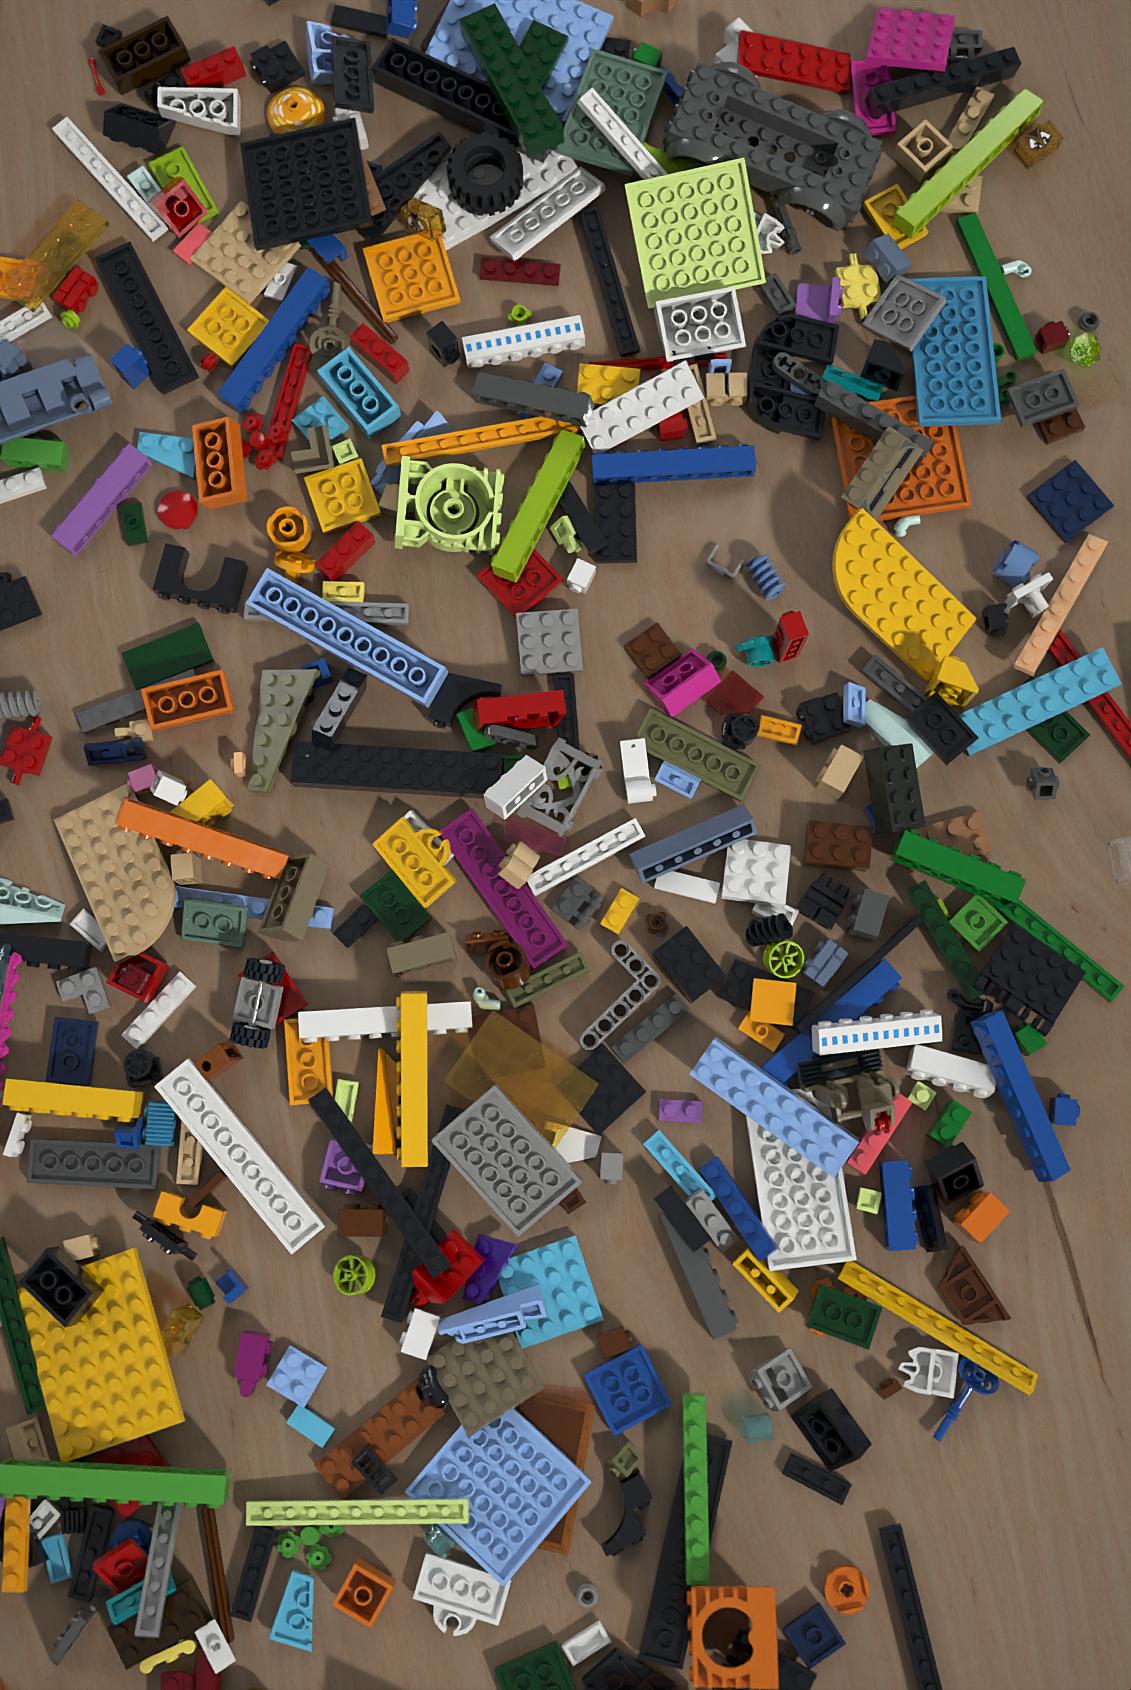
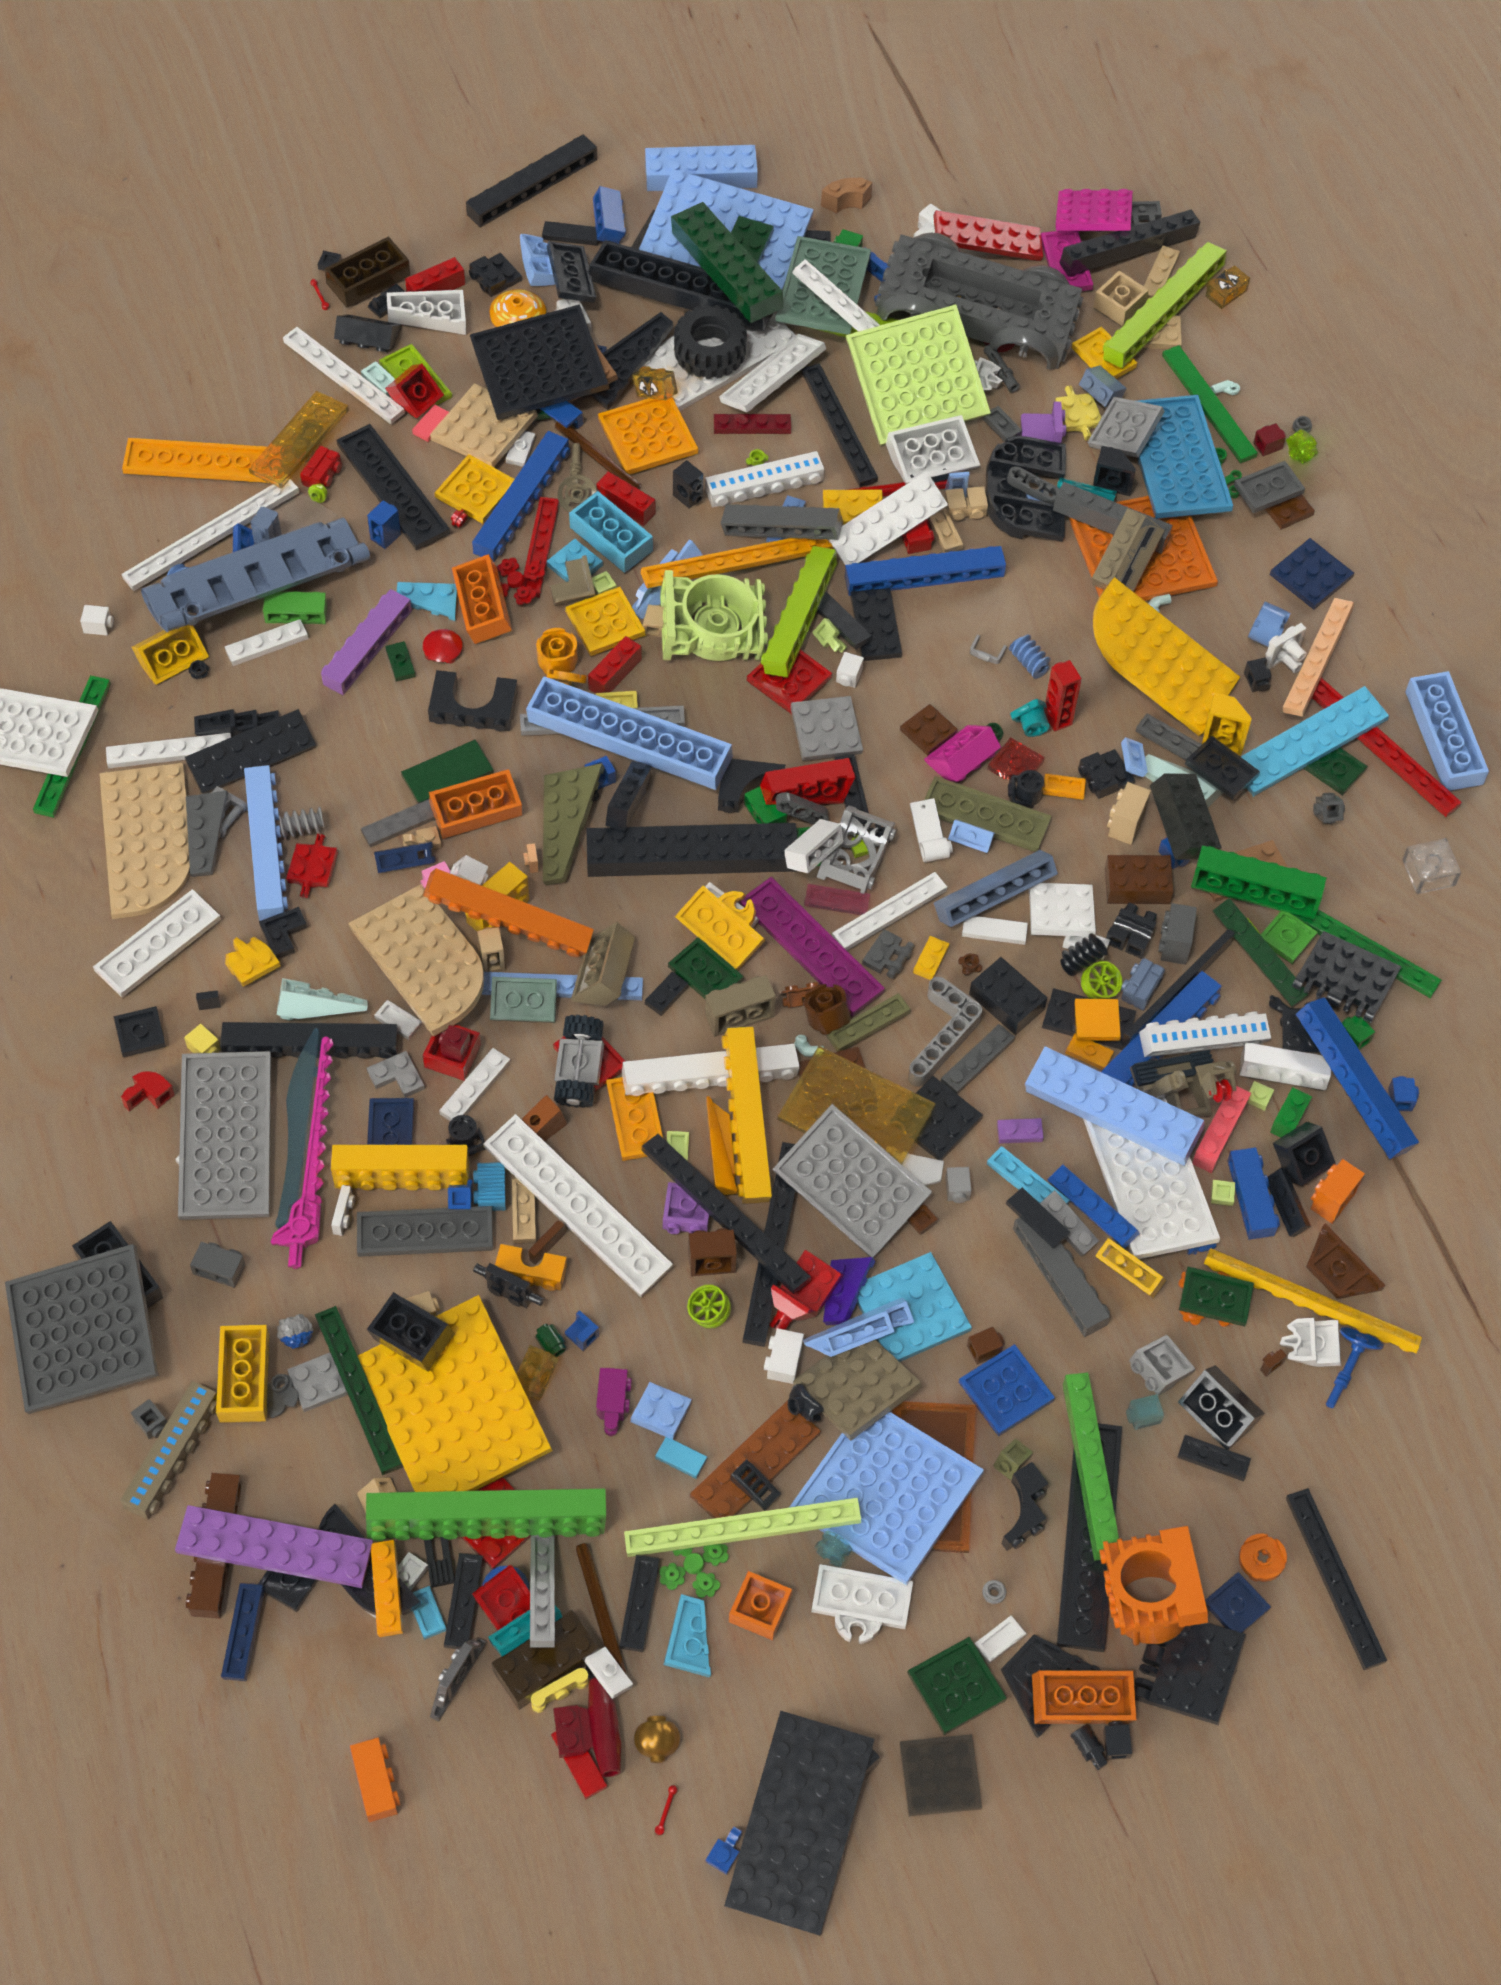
camera: 10 degrees left, 20 degrees down
(518, 864) = (824, 918): tan brick -> none

